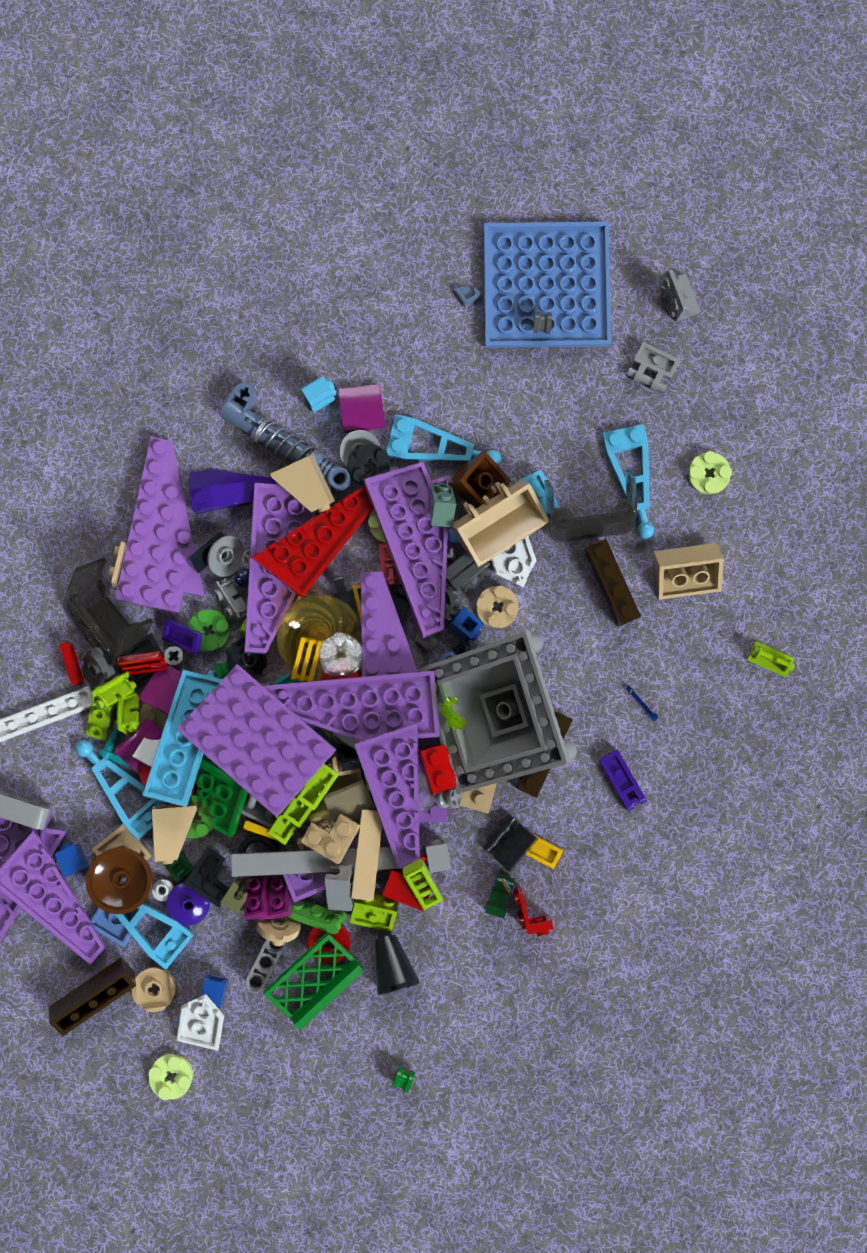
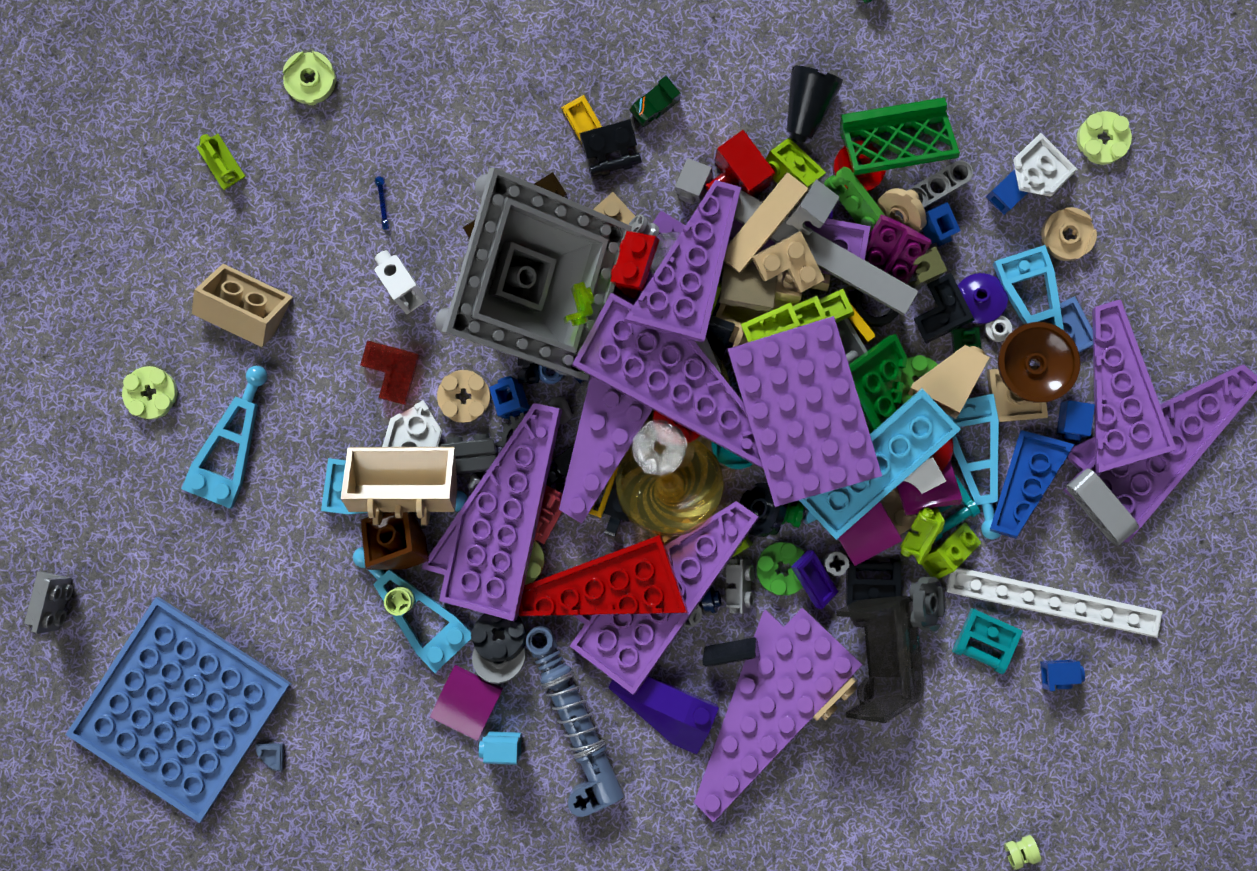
camera: 145 degrees left, 0 degrees up
(43, 677) = (991, 632): none -> teal plate
(71, 663) = (950, 627): red tile -> none
(79, 798) = (1027, 480): none -> blue wing
(92, 996) = (1138, 265): dark brown brick -> none
(104, 695) = (936, 566): lime hinge -> none
(142, 663) = (874, 576): red tile -> none
(229, 562) = (714, 635): light grey dish -> none
(247, 937) = (940, 224): none -> blue brick
(302, 677) = (713, 453): yellow tile -> none
(305, 483) = (579, 656): tan slope -> none
(416, 871) = (726, 172): lime slope -> none
(442, 505) = (449, 537): sand green slope -> none
(448, 439) = (395, 602): none -> yellowish green wheel
(538, 925) = (637, 48): red bracket -> none
(542, 322) = (211, 667): dark grey wheel -> none
(555, 598) = (398, 369): none -> clear red plate
(566, 528) = (333, 430): clear smoke windscreen -> none
(586, 651) = (399, 282): none -> white torso
(612, 582) = (327, 342): dark brown brick -> none
(622, 779) = (454, 138): dark purple plate -> none
(656, 362) = (121, 546): light grey plate -> none
(757, 767) = (310, 92): none -> yellowish green plate

